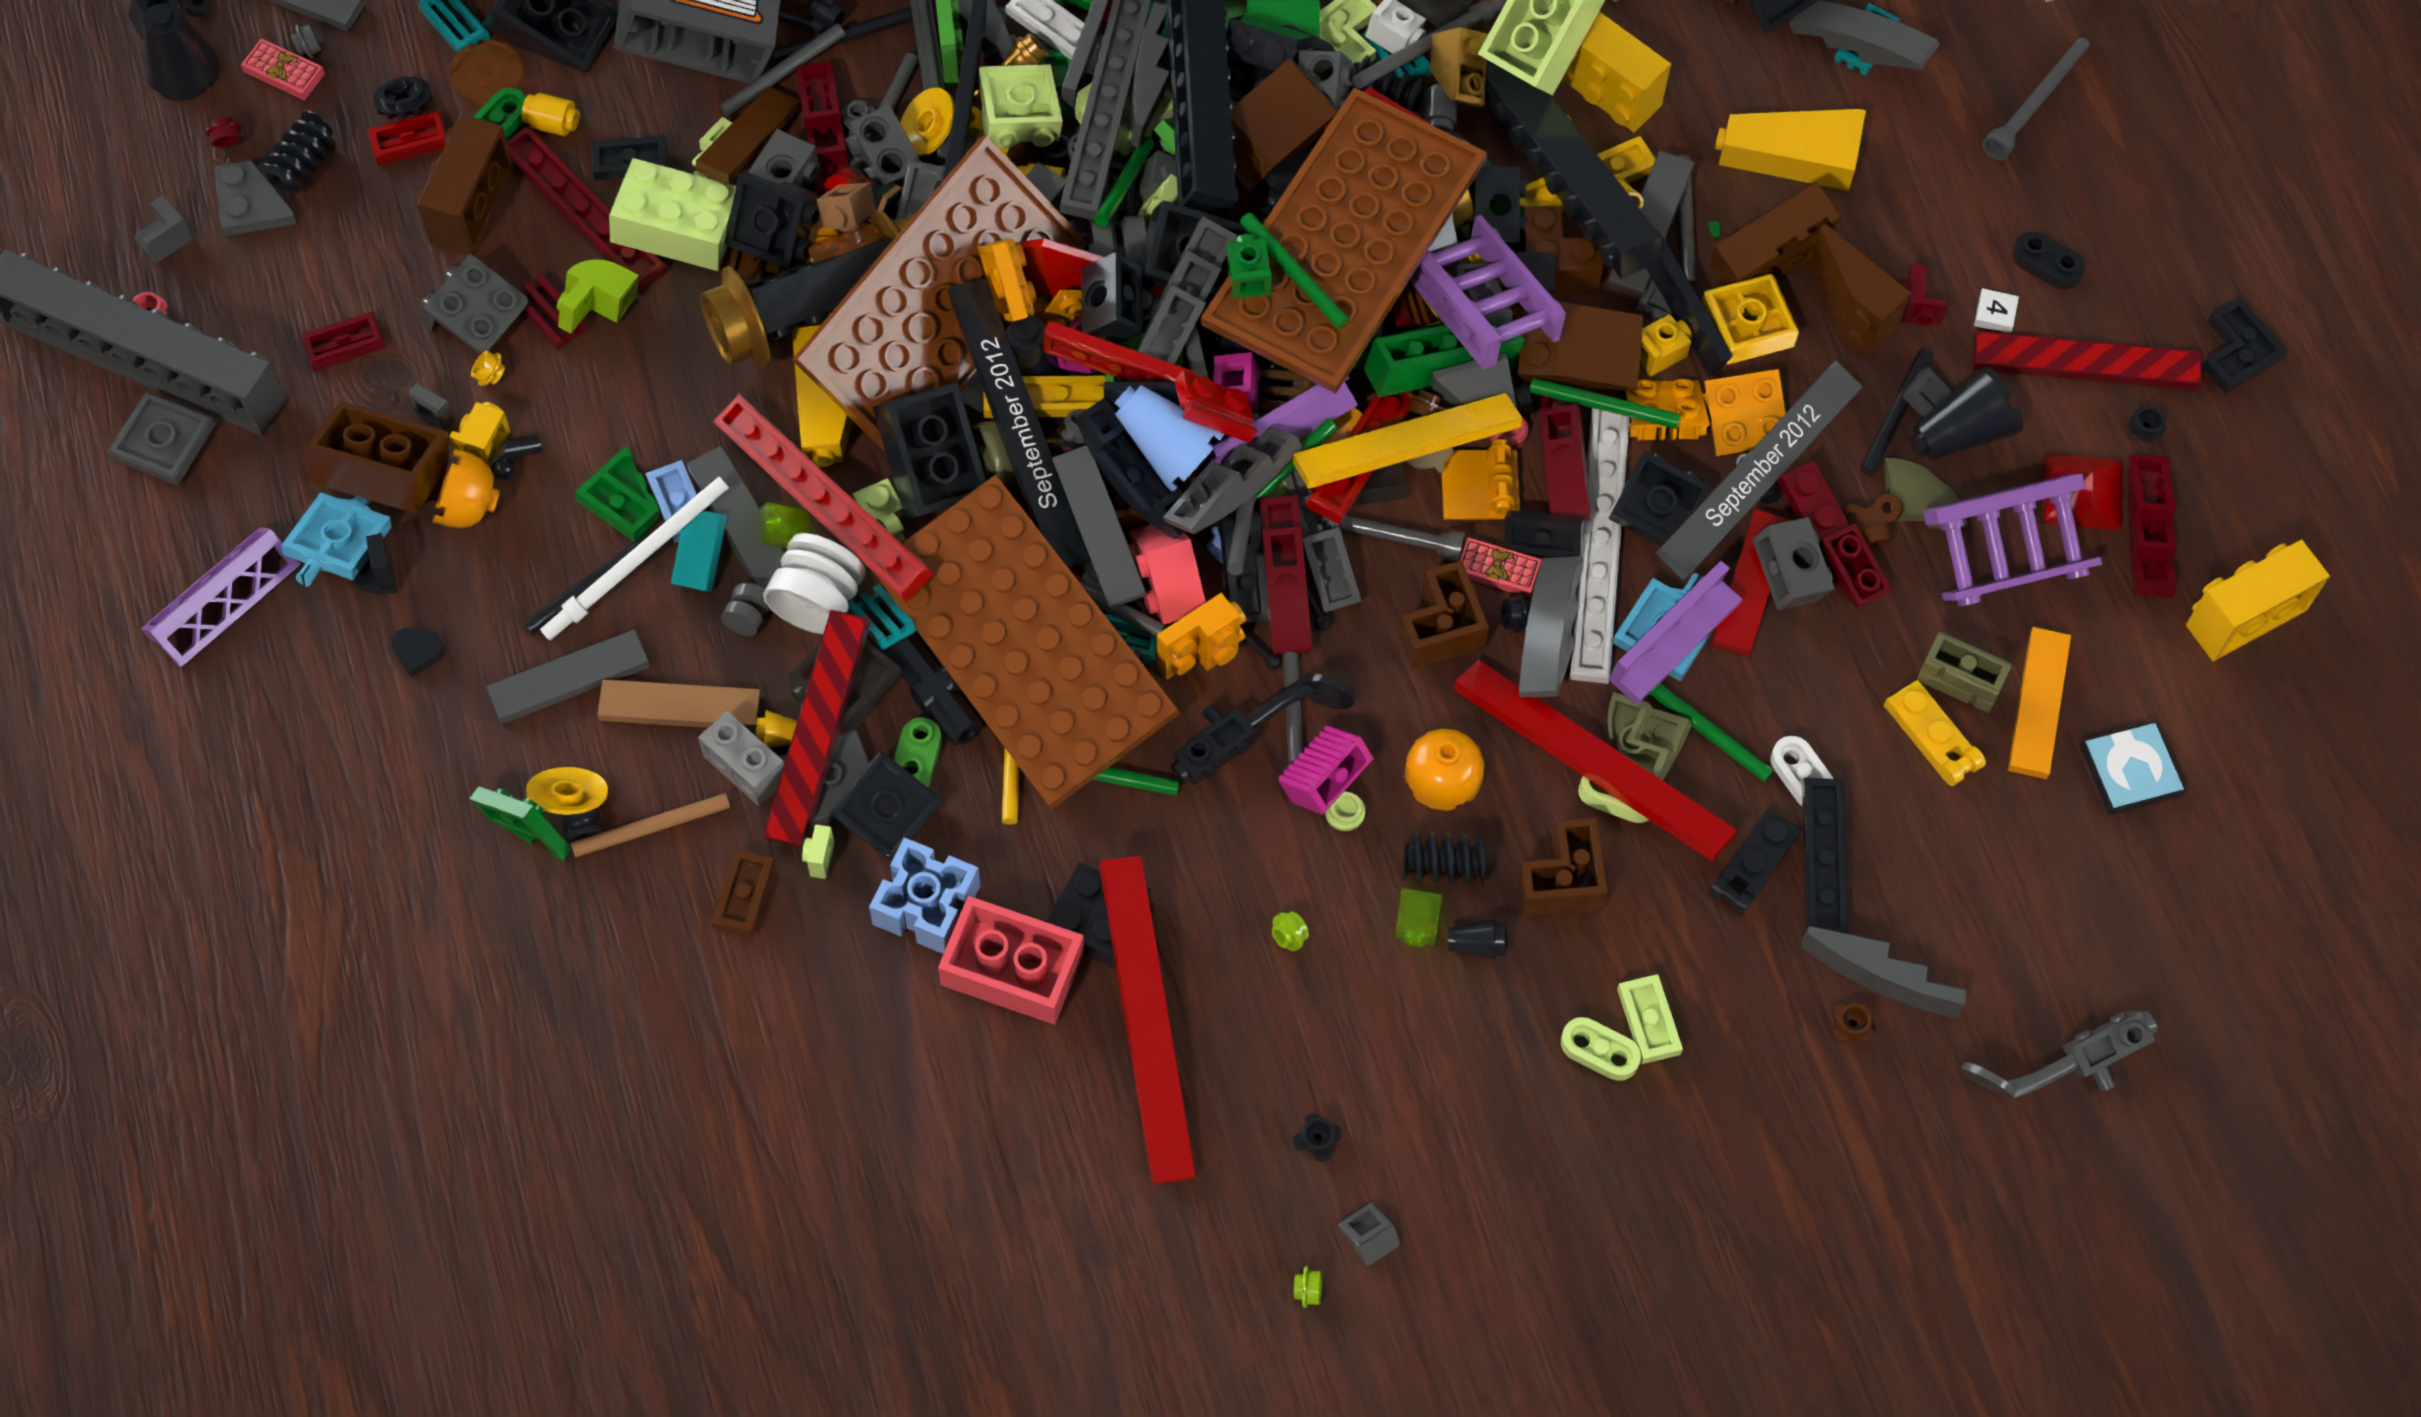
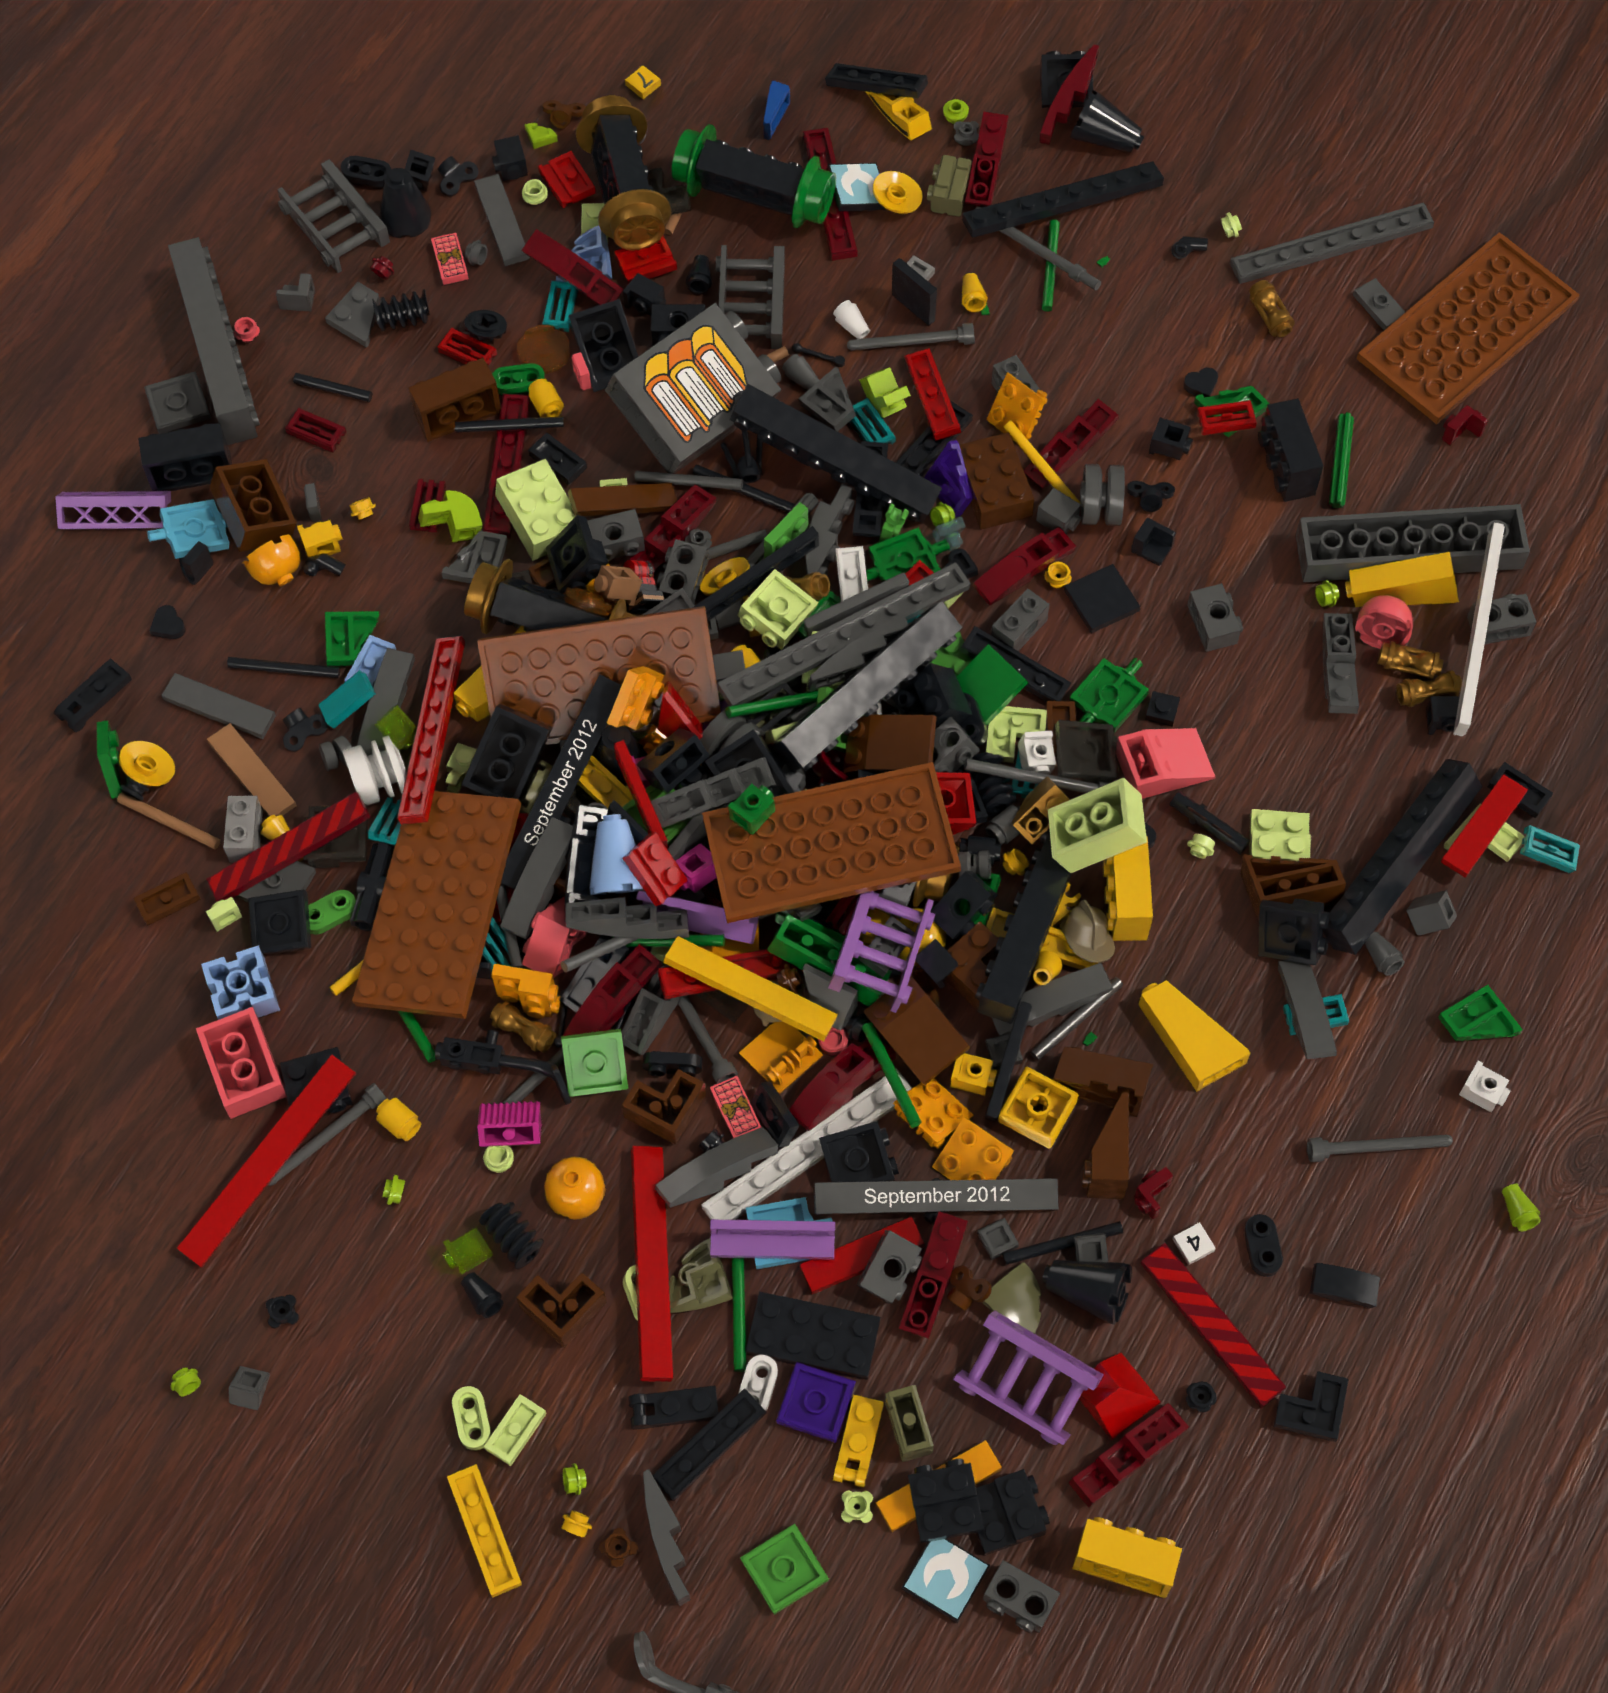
camera: 50 degrees right, 0 degrees up
(90, 57) = (367, 170): none -> black plate
(104, 95) = (346, 196): none -> dark grey fence
(248, 474) = (184, 457): none -> black brick
(310, 287) = (332, 387): none -> black bar
(424, 782) = (92, 694): none -> black plate
(473, 304) = (390, 468): dark grey bracket -> none
(544, 166) = (509, 424): none -> black bar
(555, 59) = (581, 371): none -> coral tile
(576, 608) = (260, 673): white bar -> none
(667, 314) = (485, 548): none -> dark grey wing
(680, 619) = (301, 727): none -> black piece
(1168, 872) = (371, 1099): none -> dark grey piece
(1216, 867) = (398, 1119): none -> yellow brick
(1246, 675) = (534, 1033): none -> pearl gold piece
(1296, 272) = (777, 834): green bar -> none
(1336, 639) = (594, 1062): none -> bright green plate
(1393, 587) = (660, 1063): none -> black plate
(1482, 137) = (1015, 862): none -> yellow plate
(1616, 137) = (1088, 933): none -> dark tan piece
(1729, 1128) = (484, 1530): none -> yellow plate
(1749, 1007) = (574, 1479): none -> lime plate
(1793, 686) = (813, 1335): none -> black plate
(1797, 1039) = (576, 1523): none -> yellow plate
(1842, 460) = (997, 1238): none -> dark grey tile
(1864, 736) = (816, 1402): none -> dark purple plate
(2002, 776) = (850, 1513): none -> yellowish green plate
(2005, 895) = (784, 1569): none -> bright green plate
(2067, 702) = (945, 1501): none -> black plate
(2116, 666) = (1010, 1512): none -> black plate
(2146, 228) = (1345, 1284): none -> black slope
(2200, 43) = (1521, 1210): none -> lime cone
(2206, 712) = (1025, 1589): none -> dark grey brick

